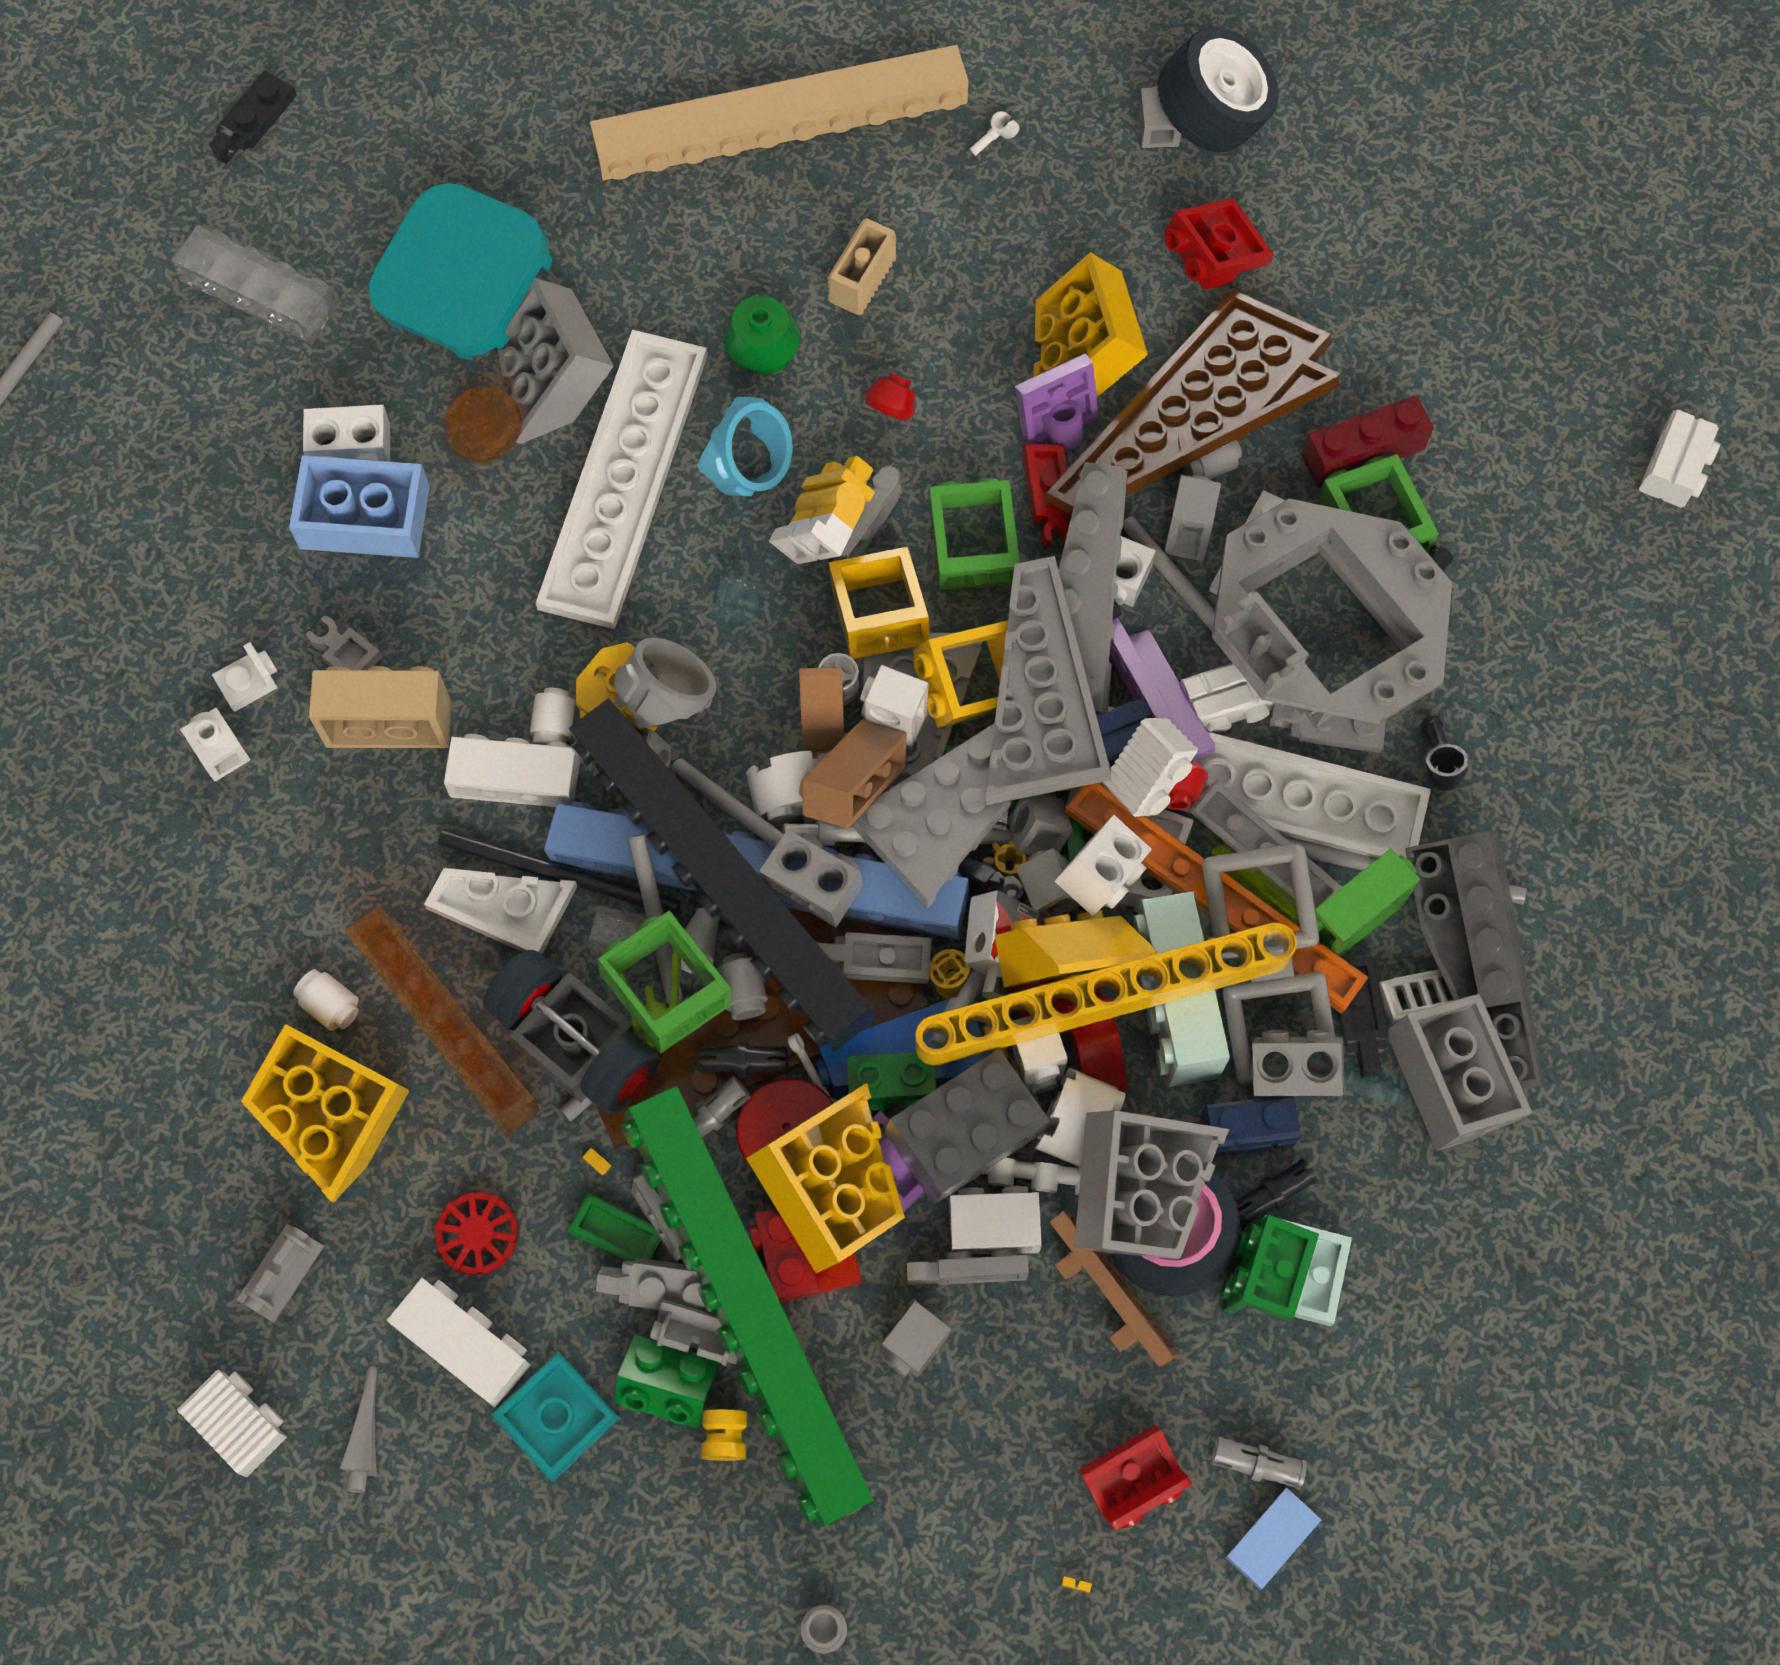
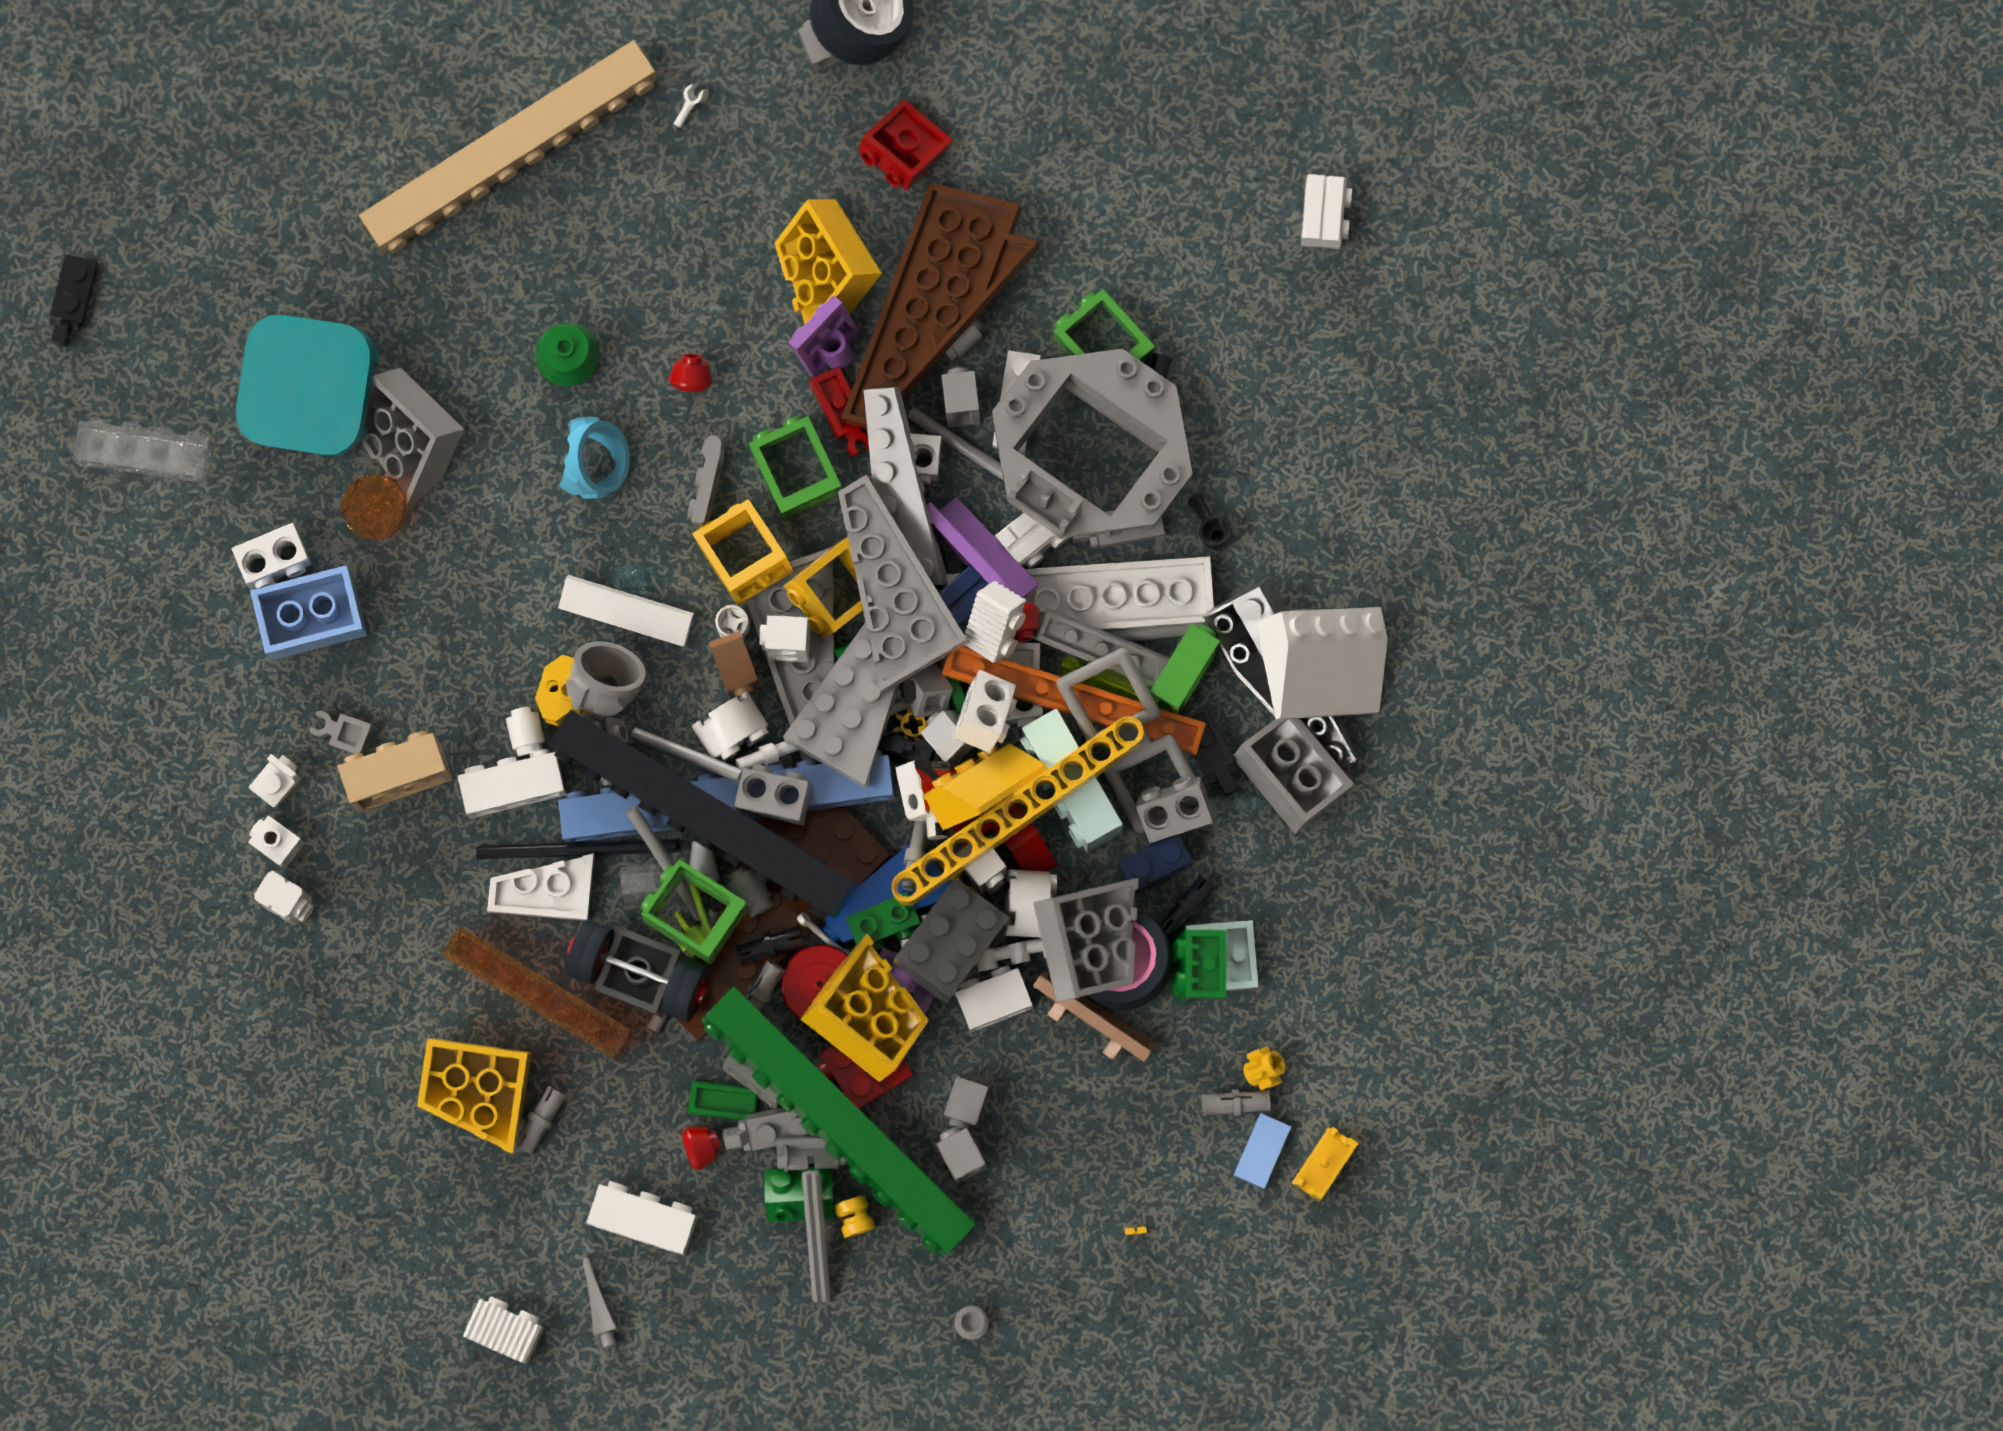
camera: 15 degrees left, 10 degrees up
(192, 805) = (284, 898): none -> white brick
(280, 1273) = (492, 1216): light grey hinge -> none
(326, 1000) = (444, 1008): white brick -> none
(385, 1175) = (540, 1120): none -> light grey pin
(476, 1233) = (622, 1138): red wheel -> none
(555, 1417) = (729, 1246): teal tile -> none
(566, 1276) = (700, 1146): none -> red cone
(596, 1161) = (689, 1055): yellow piece -> none
(622, 480) = (502, 513): white plate -> none
(665, 1442) = (816, 1236): none -> light grey axle
(721, 626) = (626, 610): none -> white tile
(826, 512) = (675, 492): hips -> none
(853, 774) = (775, 703): medium nougat brick -> none
(862, 266) = (627, 268): tan brick -> none
(881, 957) = (842, 834): light grey hinge -> none
(886, 1402) = (960, 1154): none -> light grey brick
(949, 984) = (902, 832): yellow wheel -> none
(962, 1268) = (981, 1039): light grey plate -> none
(1134, 1478) = (1152, 1144): red bracket -> none
(1310, 1431) = (1264, 1068): none -> yellow gear
(1351, 1585) = (1324, 1163): none -> yellow hinge
(1386, 431) = (1076, 280): dark red brick -> none
(1390, 988) = (1230, 735): white slope -> none
(1541, 948) = (1324, 661): none -> white slope

